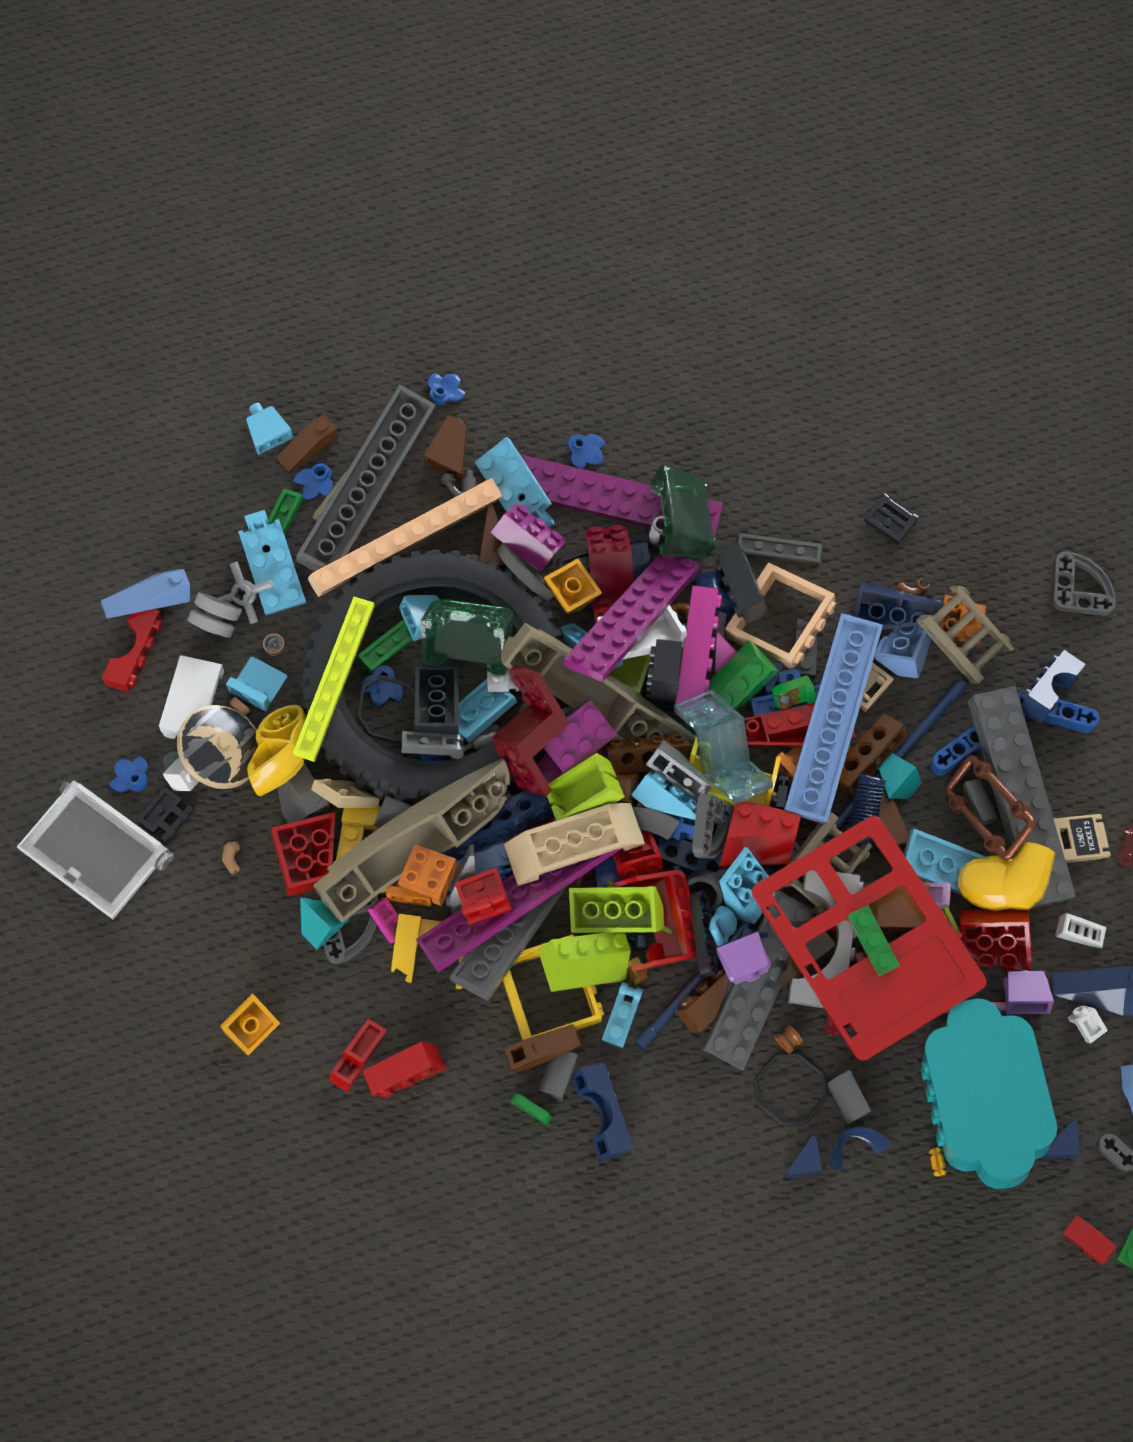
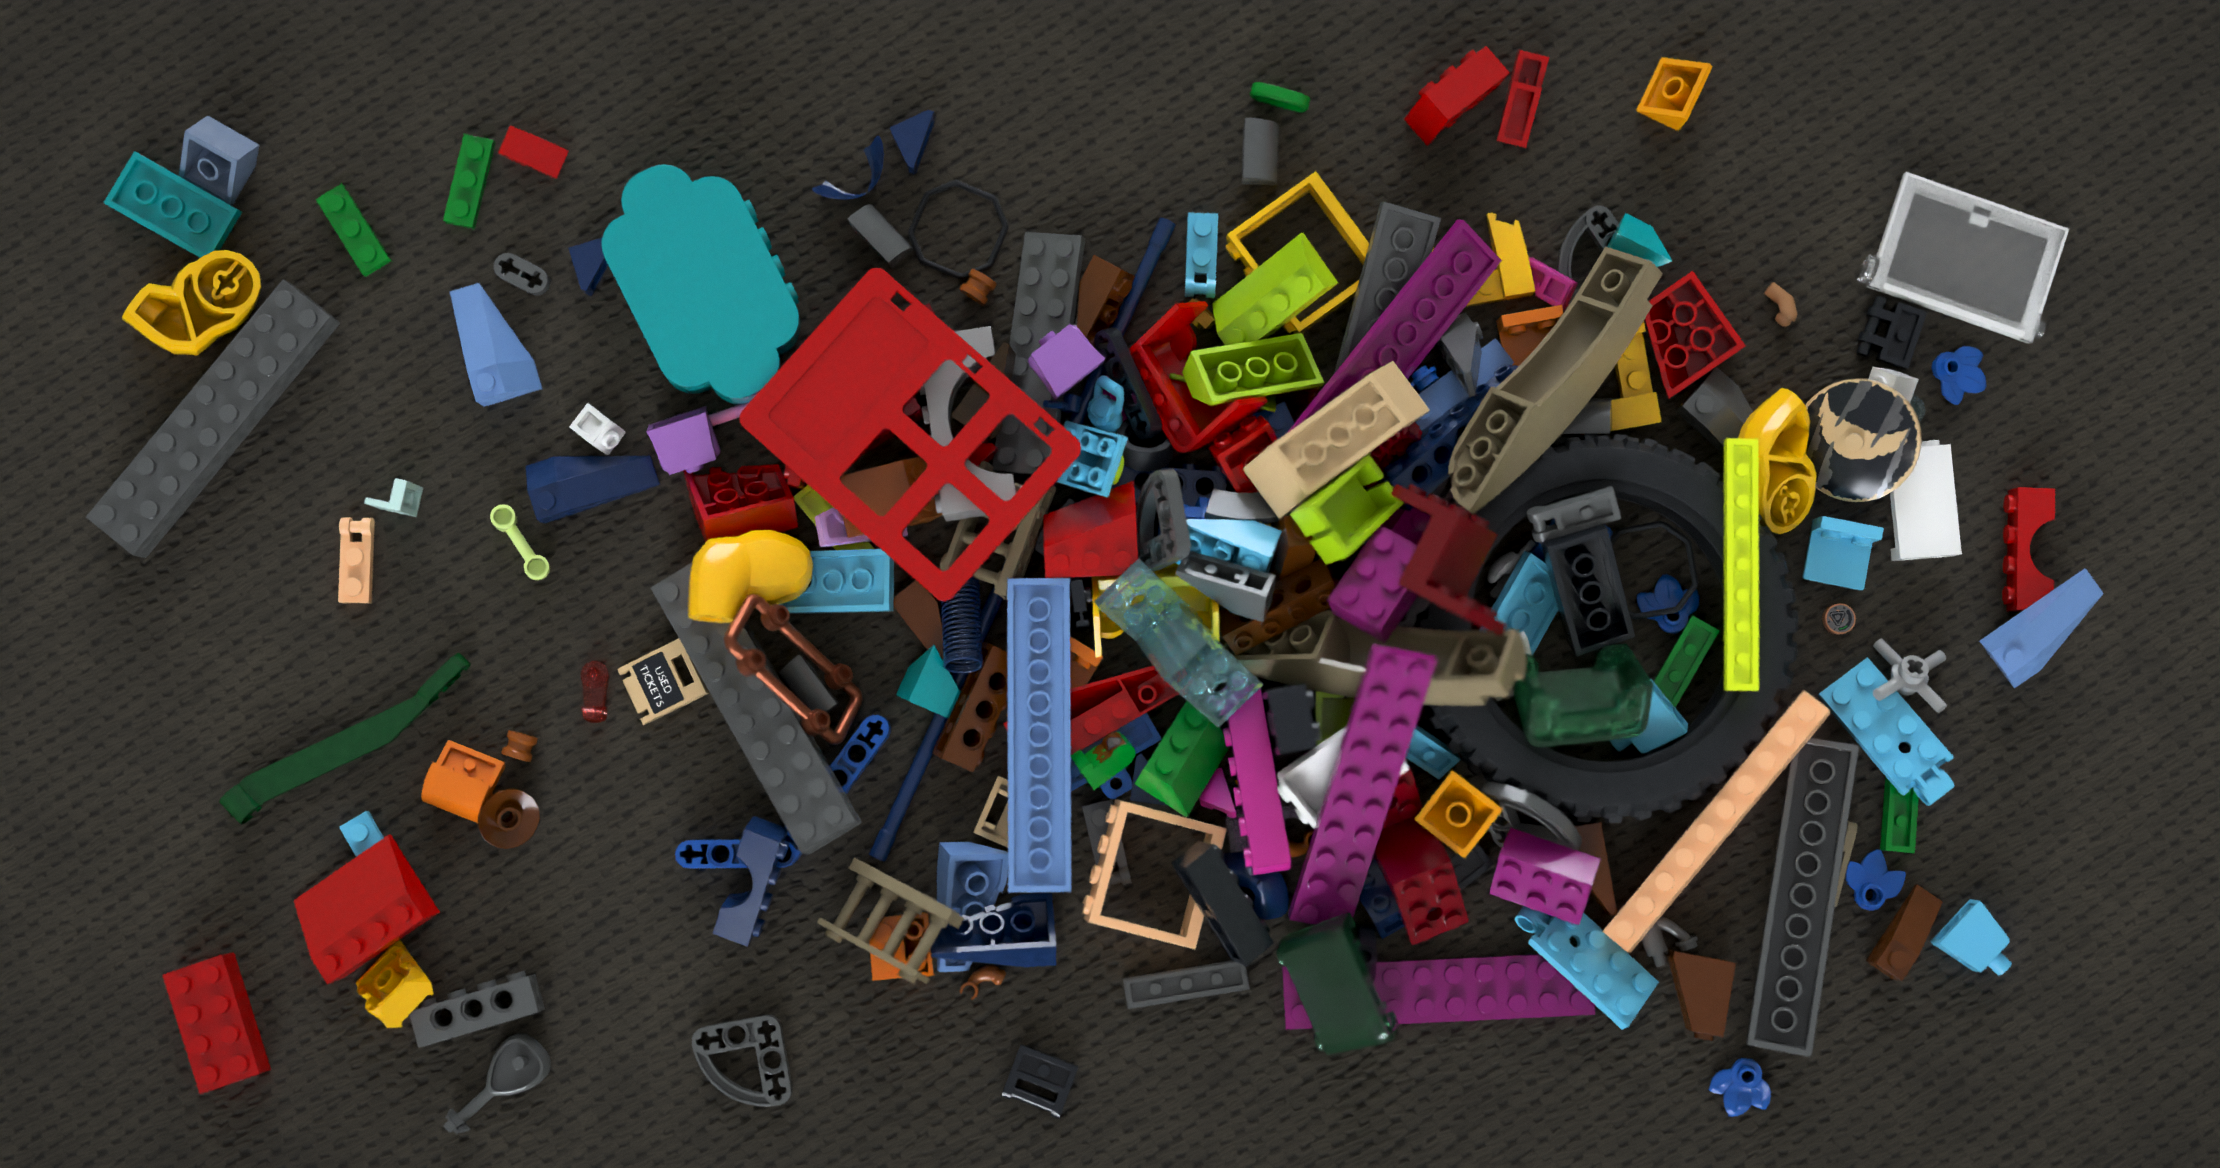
camera: 165 degrees right, 15 degrees up
(213, 617) = (1938, 623): light grey wheel -> none
(239, 706) = (1851, 512): nougat tile -> none
(344, 794) = (1664, 423): tan container -> none
(428, 873) = (1515, 341): orange bracket -> none
(483, 896) = (1433, 328): red plate -> none
(542, 1048) = (1290, 169): reddish brown slope -> none
(588, 452) = (1502, 1049): blue plate -> none
(595, 1085) = (1165, 90): dark blue arch -> none
(873, 941) = (901, 425): green plate -> none
(937, 1162) = (747, 190): light orange piece -> none
(1062, 930) = (652, 548): white slope -> none

